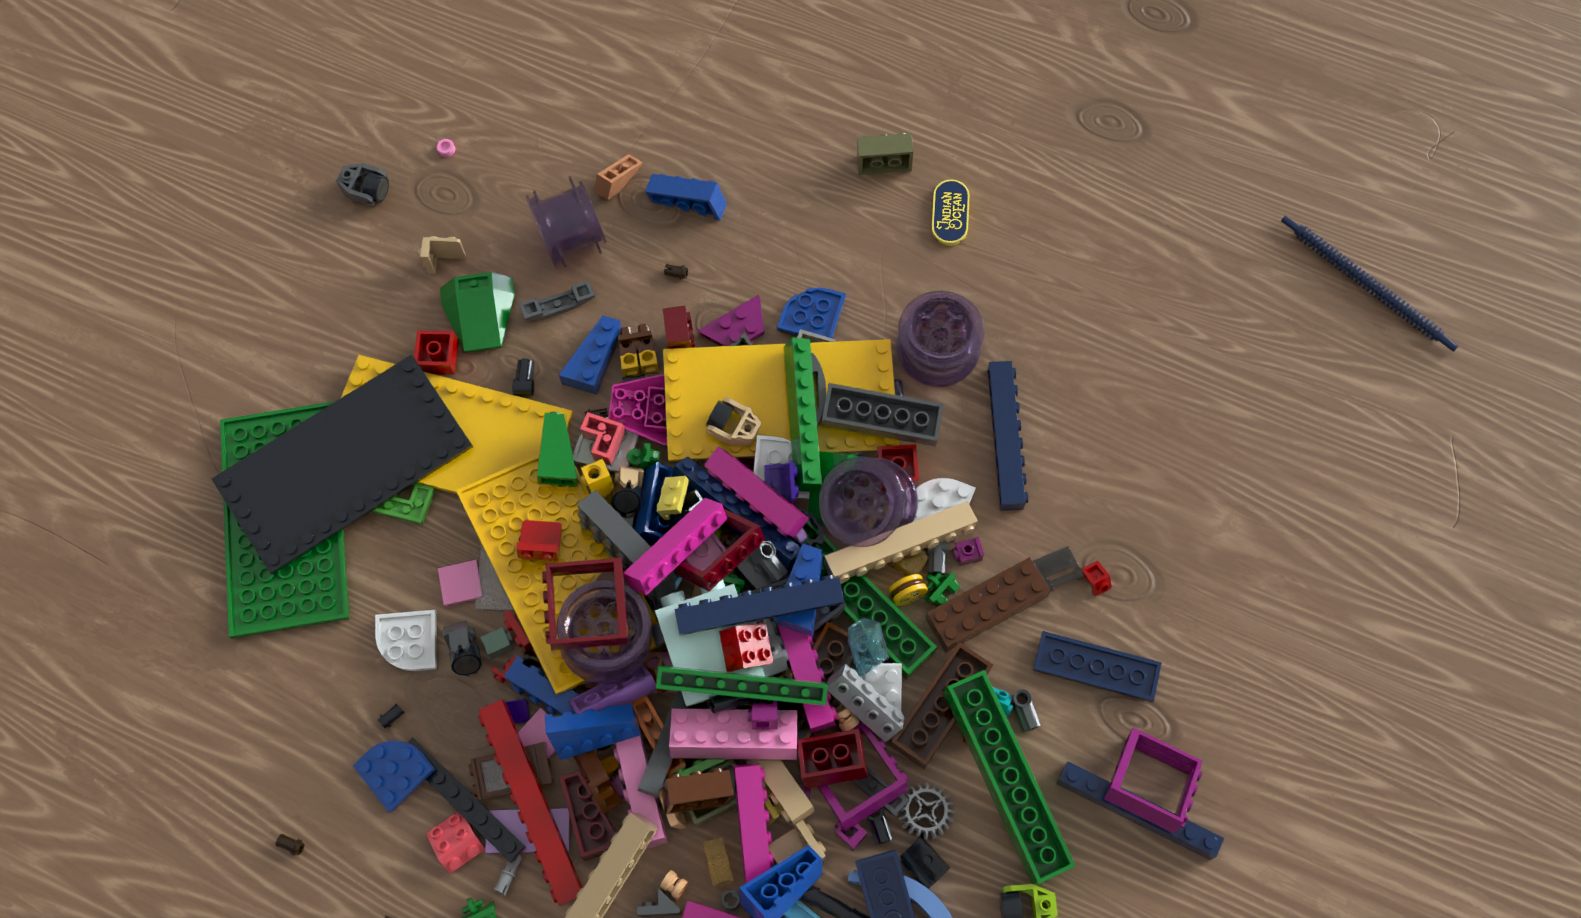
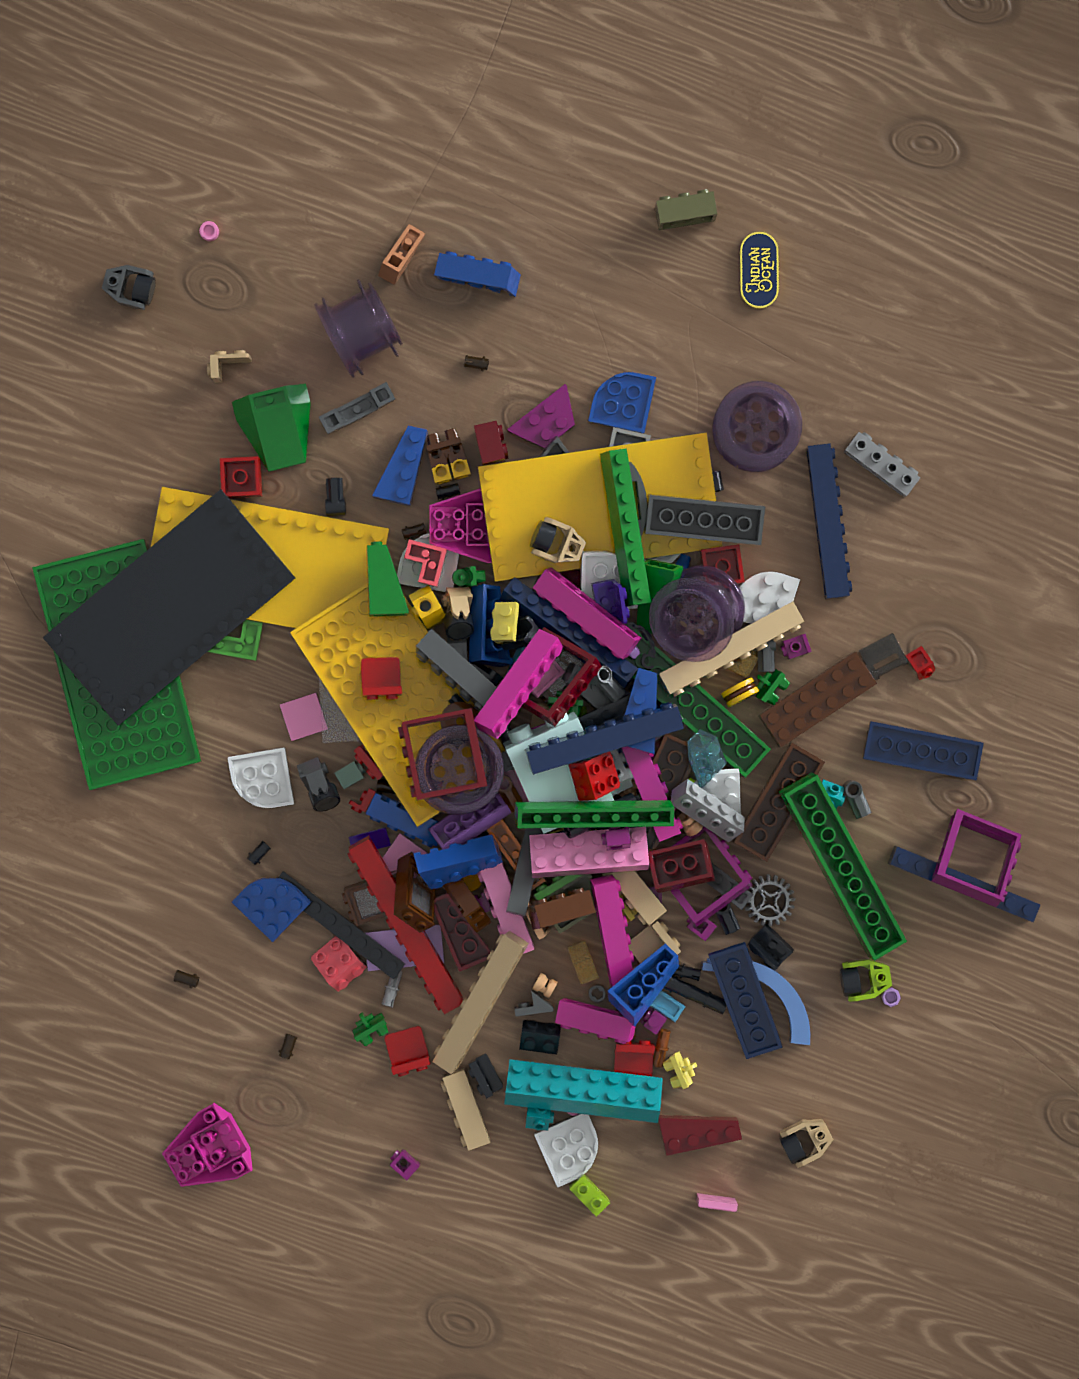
camera: 10 degrees left, 20 degrees up
(541, 768) = (413, 896): none -> reddish brown door
(831, 883) = (688, 972): none -> black axle
(1061, 386) = (881, 464): none -> light grey brick

